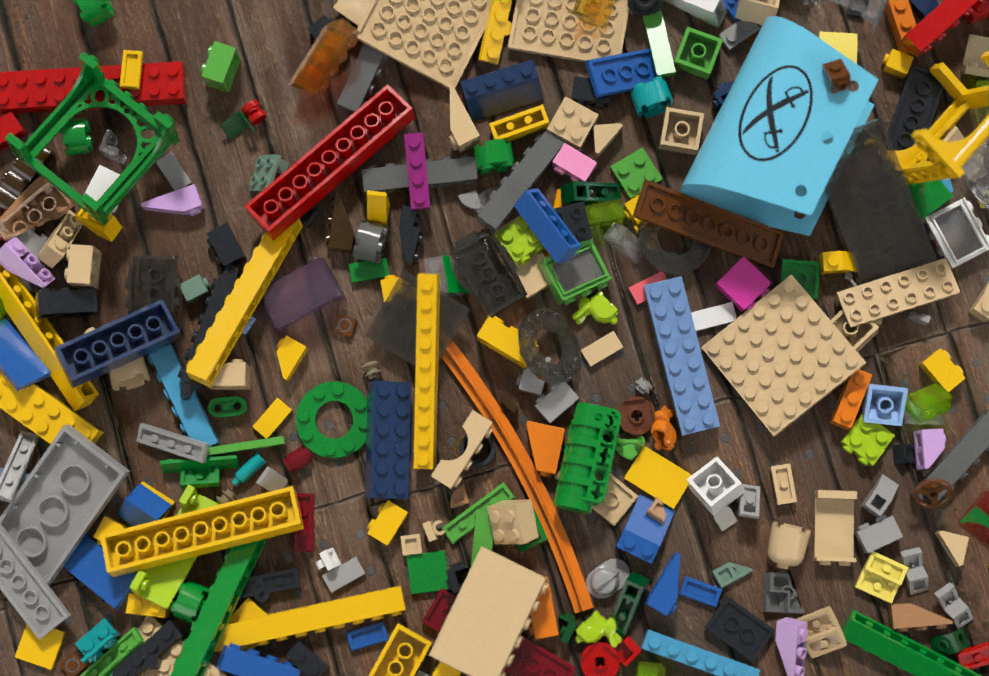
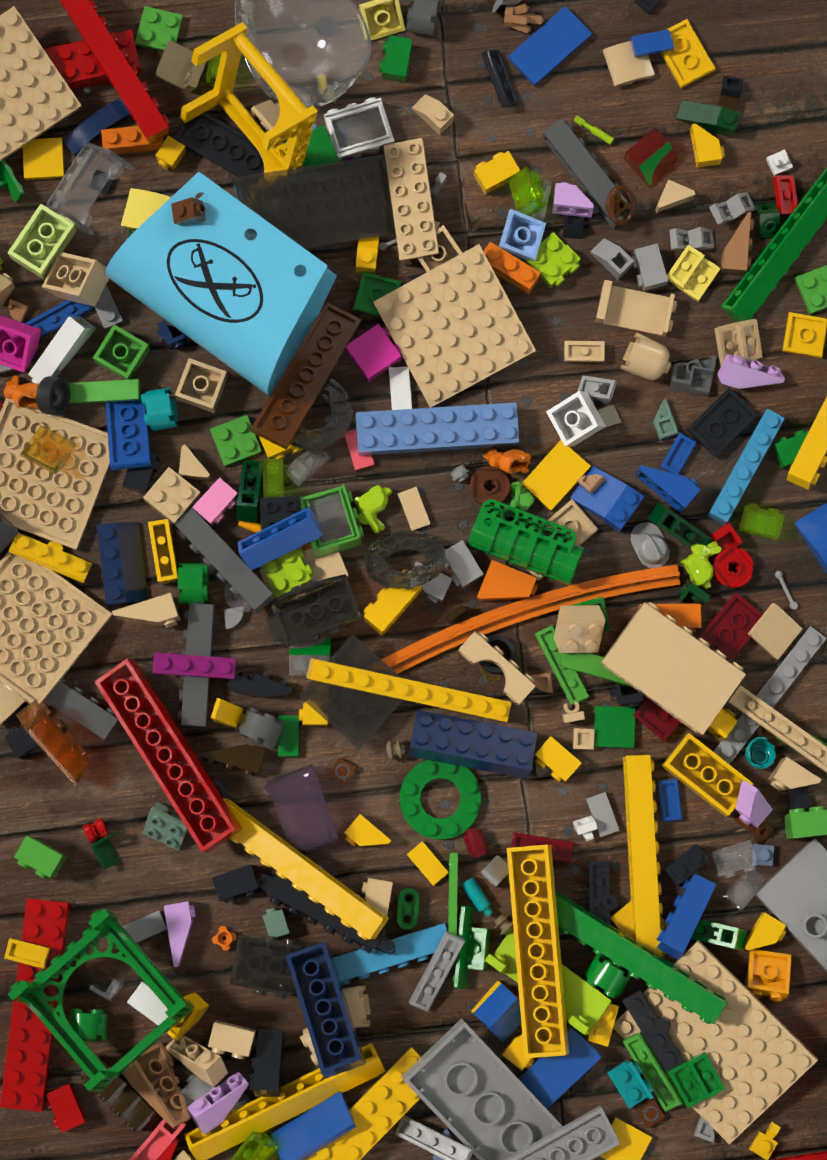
camera: 90 degrees left, 0 degrees up
(173, 239) = (225, 944): none -> orange plate

